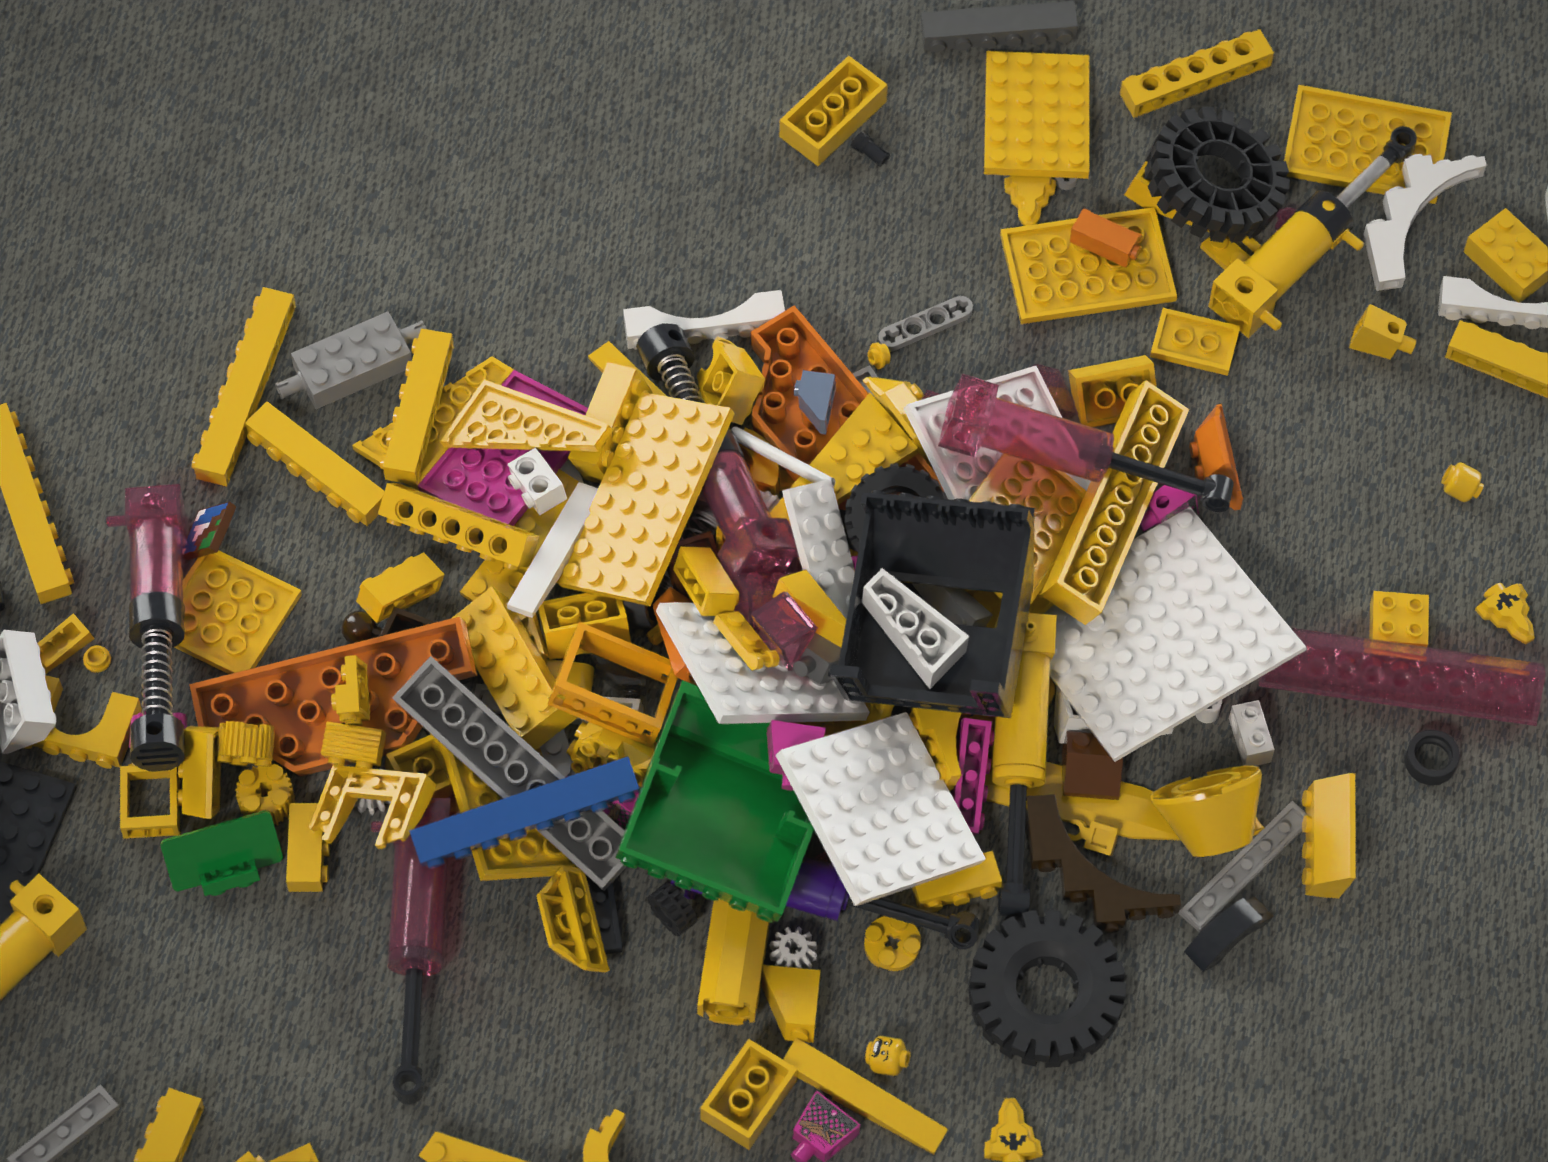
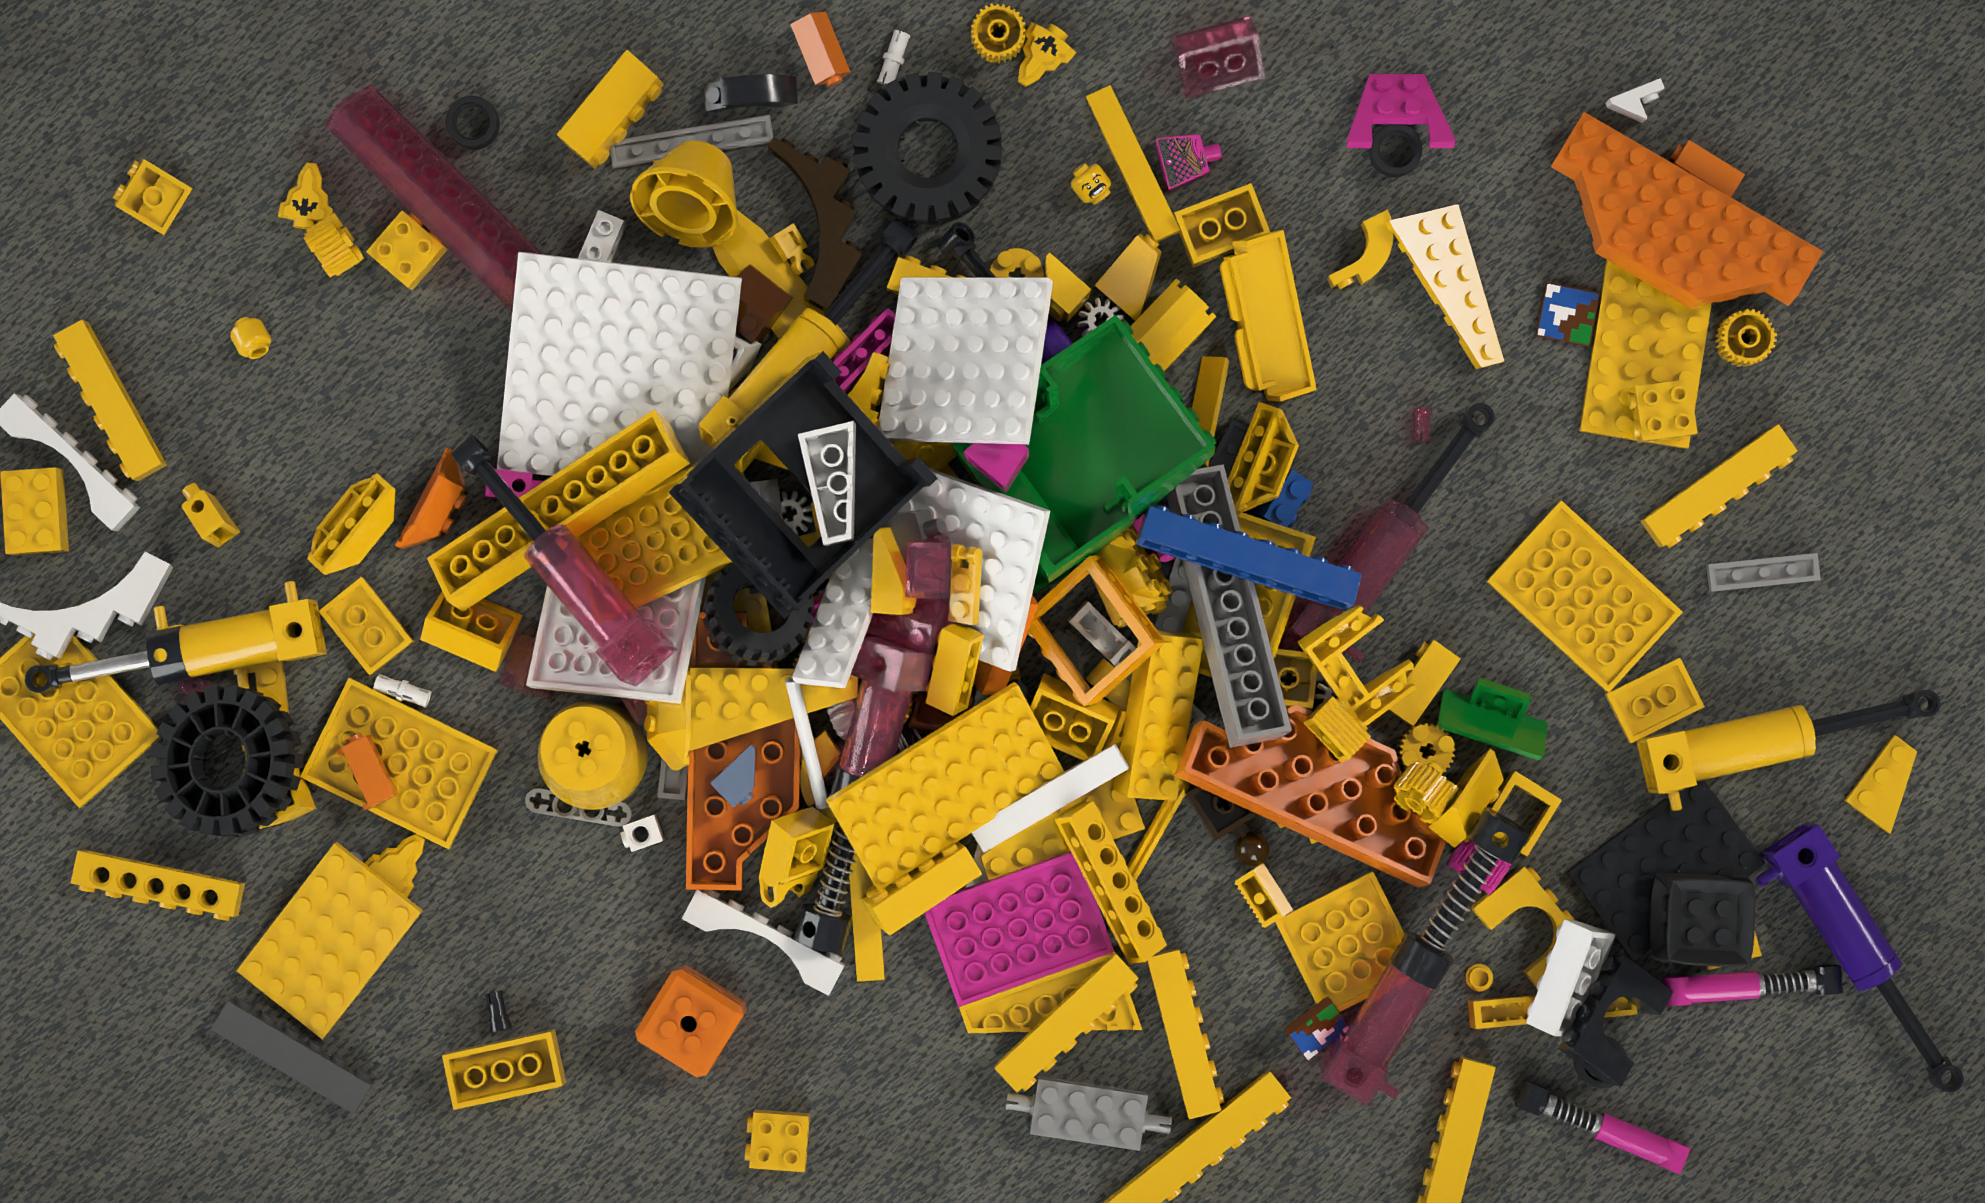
camera: 150 degrees left, 25 degrees up
(91, 966) = (1654, 700): none -> yellow plate
(211, 1009) = (1584, 596): none -> yellow plate
(323, 598) = (1263, 895): none -> yellow brick
(352, 699) = (1317, 760): yellow plate -> none
(400, 587) = (1196, 861): yellow brick -> none
(448, 585) = (1155, 831): none -> yellow axle
(458, 1060) = (1421, 421): none -> clear pink pin
(512, 420) = (1001, 944): yellow wing -> none
(527, 919) = (1284, 508): none -> blue brick
(540, 479) = (1016, 871): white brick -> none
(583, 193) = (778, 1140): none -> yellow brick
(642, 1037) = (1268, 317): none -> yellow slope
(649, 939) = (1210, 392): none -> yellow slope
(719, 241) = (692, 995): none -> orange plate
(845, 940) = (1067, 290): none -> yellow slope
(858, 343) = (654, 829): none -> white brick
(878, 355) = (642, 802): yellow plate -> none
(944, 339) = (612, 767): none -> yellow cone
(1058, 1136) = (998, 48): none -> yellow brick
(1129, 316) = (402, 690): none -> white pin
(1134, 1045) = (893, 57): none -> white pin
(1200, 1006) = (820, 49): none -> orange brick
(1266, 397) = (353, 525): none -> yellow wedge
(1458, 584) = (333, 245): none -> yellow brick

